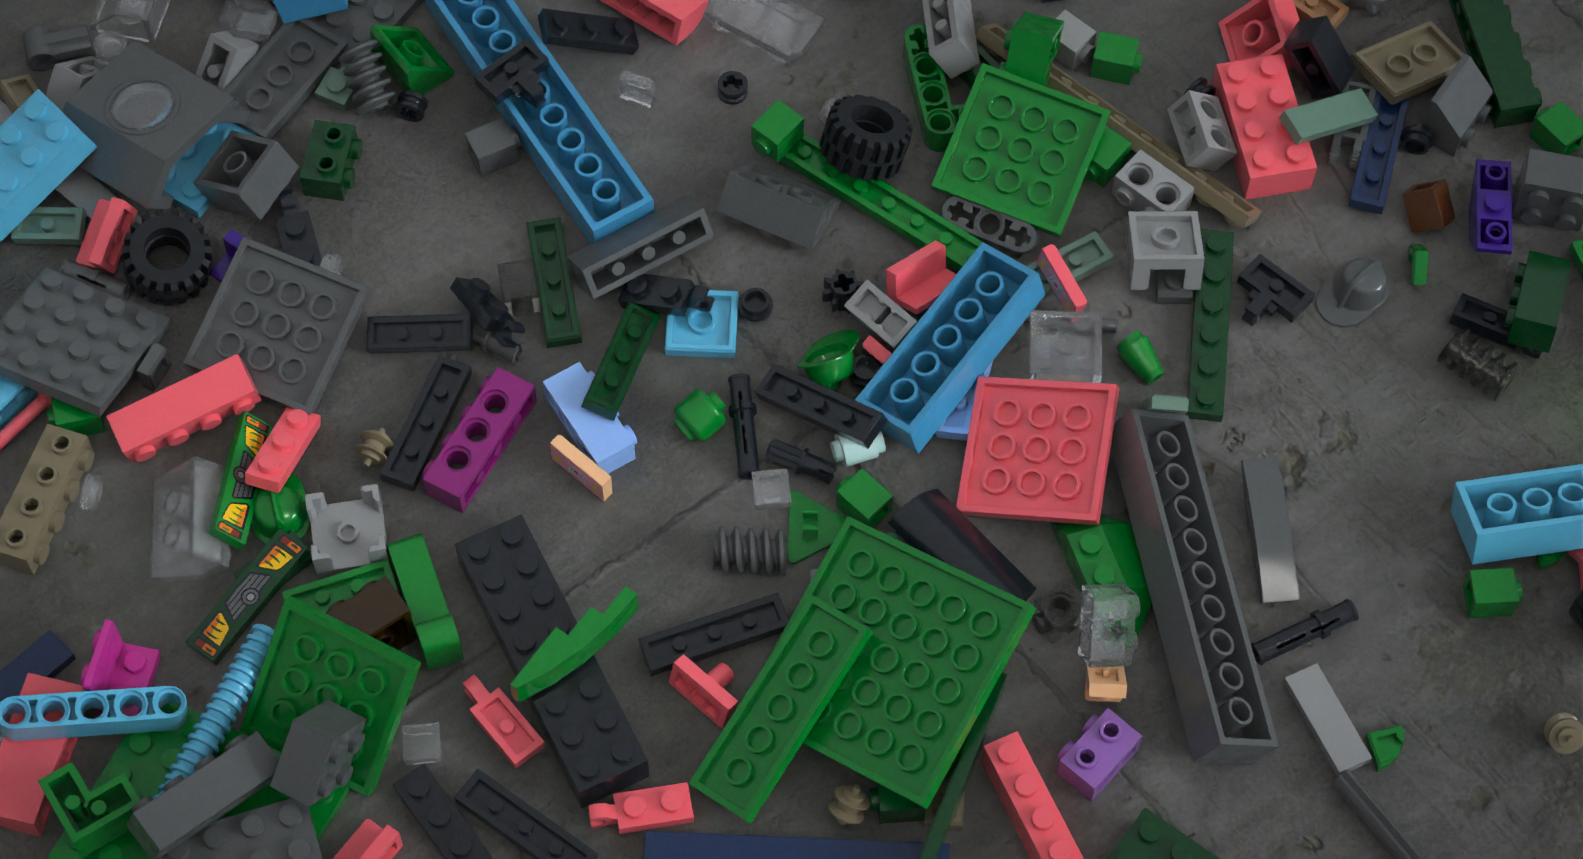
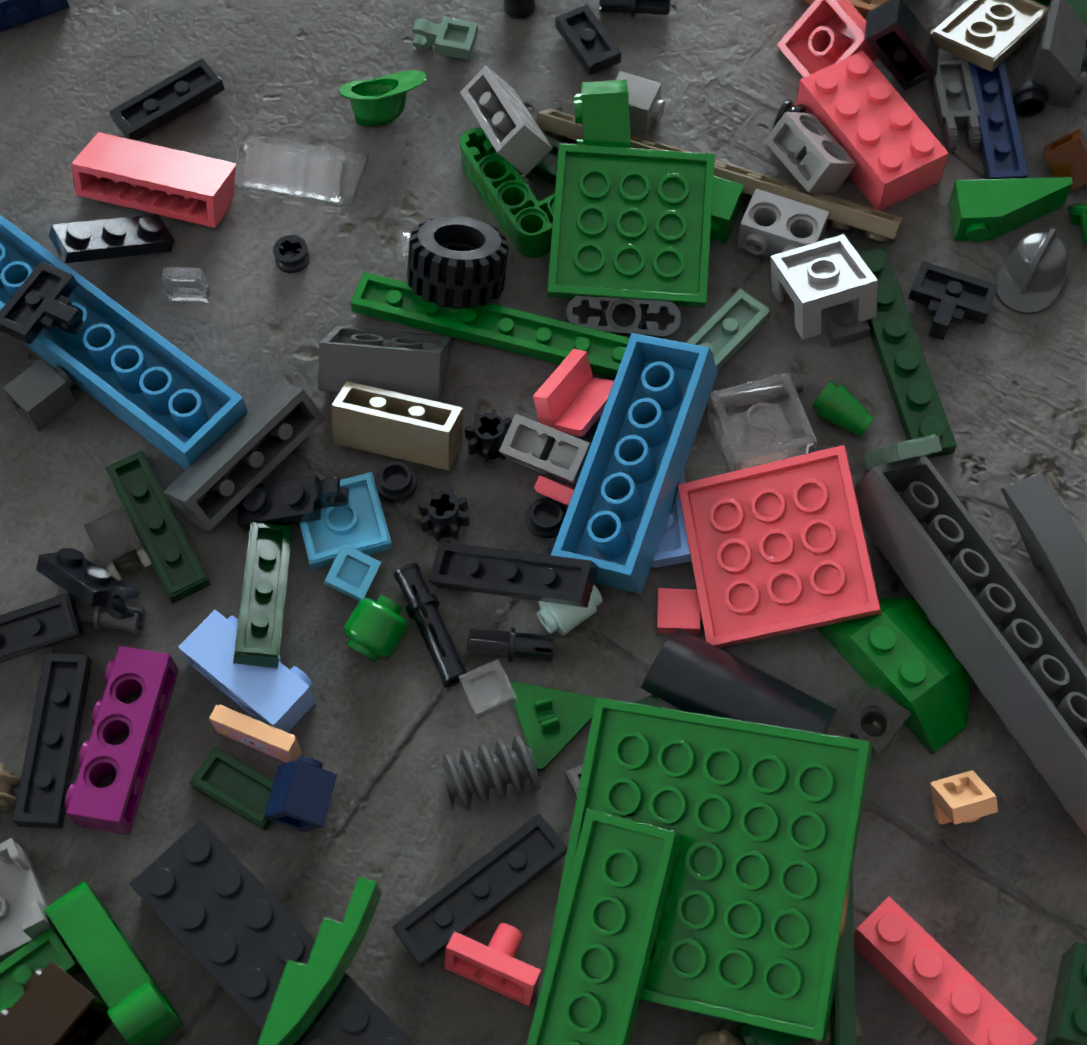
camera: 15 degrees left, 0 degrees up
(556, 504) = (234, 786): none -> dark green tile
(601, 521) = (300, 794): none -> dark blue brick
(695, 366) = (352, 572): none -> medium azure plate
(770, 259) = (397, 425): none -> dark tan brick
(777, 131) = (357, 282): green brick -> none
(784, 343) = (444, 514): none -> black gear
(831, 359) = (503, 515): green piece -> none
(863, 498) = (598, 667): green brick -> none
(944, 475) = (678, 610): none -> coral tile
(1061, 279) = (729, 350): coral tile -> none
(1098, 754) = (986, 888): medium lavender brick -> none
(1108, 625) = (939, 729): clear brick -> none
(1116, 58) = (689, 106): green brick -> none
(1328, 116) = (937, 98): sand green tile -> none
(1346, 227) = (998, 206): none -> green slope

